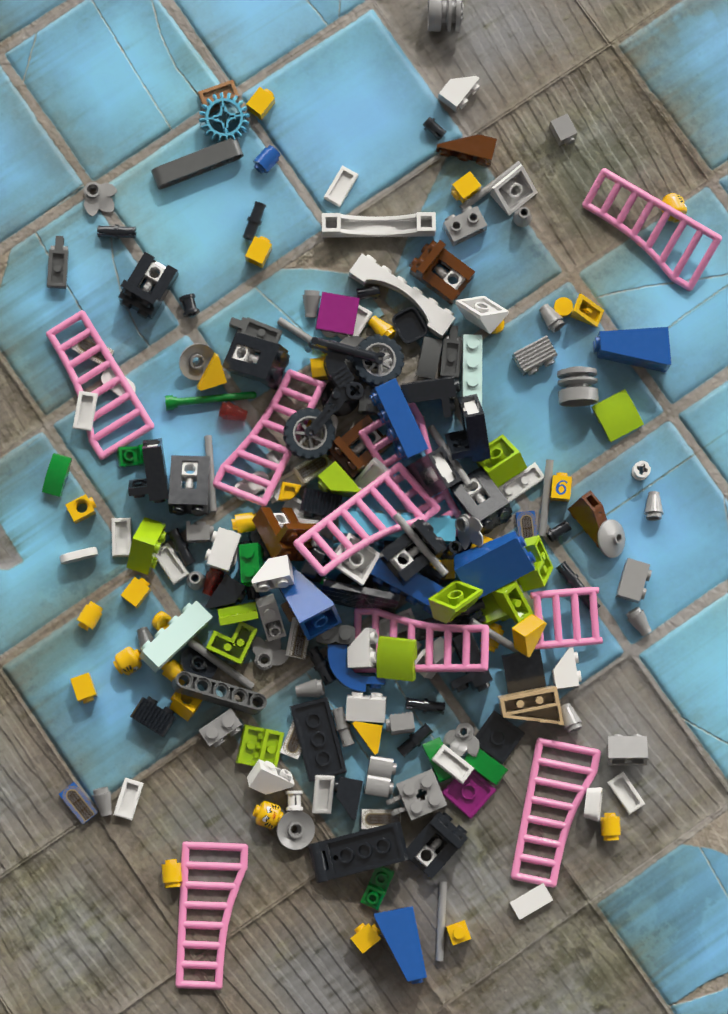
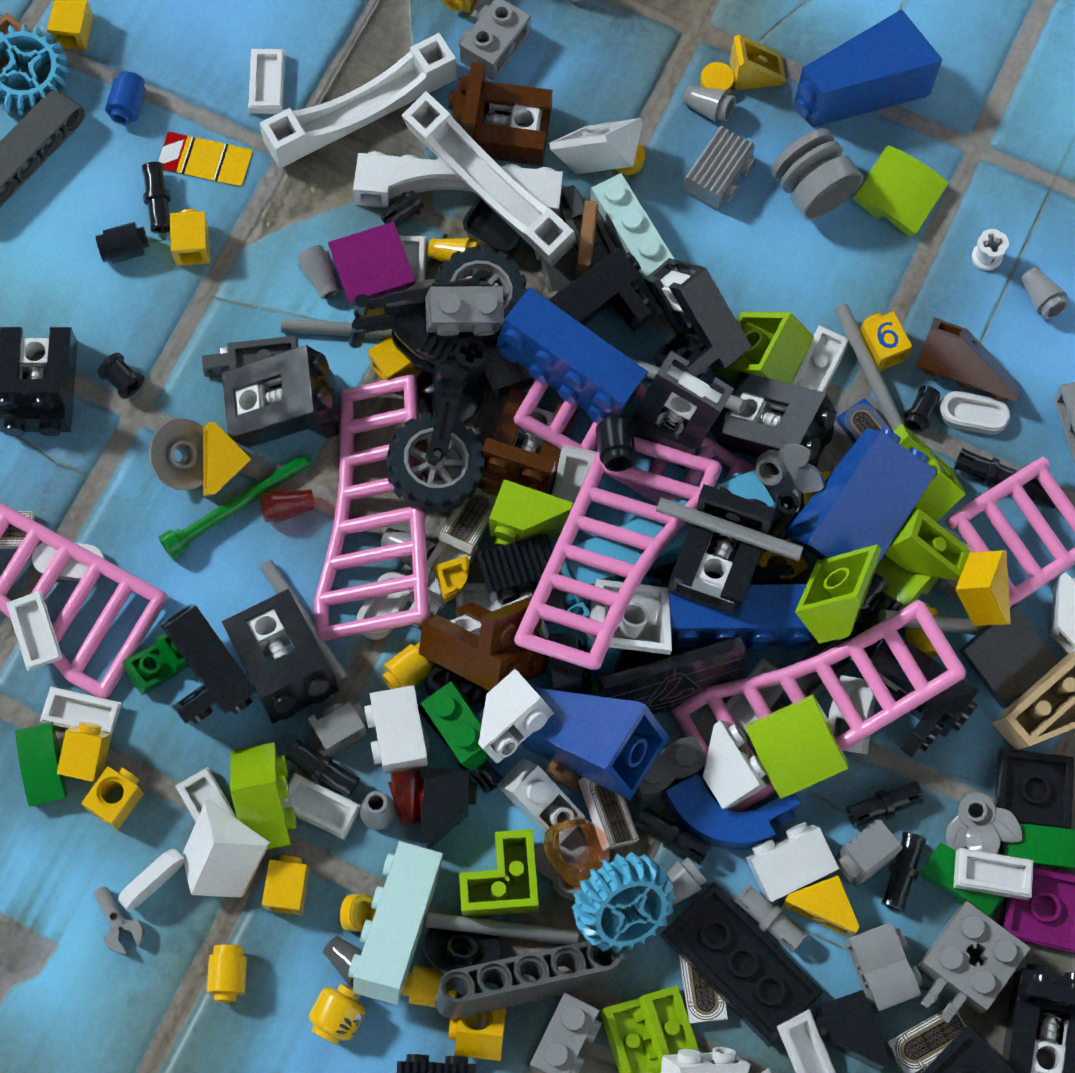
camera: 25 degrees left, 10 degrees down
(54, 566) = (117, 922): none -> light grey bar
(79, 481) = (84, 752): none -> yellow brick
(87, 460) = (70, 708): none -> white tile
(114, 562) = (221, 854): none -> white slope
(225, 236) = (122, 242): none -> black brick
(237, 613) = (482, 823): lime slope -> none
(271, 663) = (571, 873): none -> clear orange piece
(278, 684) = (623, 902): none -> medium azure gear
(288, 211) = (205, 158): none -> yellow sticker
(361, 369) = (464, 310): none -> light grey brick
(396, 472) = (616, 443): none -> black brick
(415, 305) = (513, 203): none -> white arch
(445, 360) = (586, 239): none -> medium nougat tile
(583, 546) = (974, 413): none -> white tile
(611, 538) = (1013, 373): light grey dish -> none

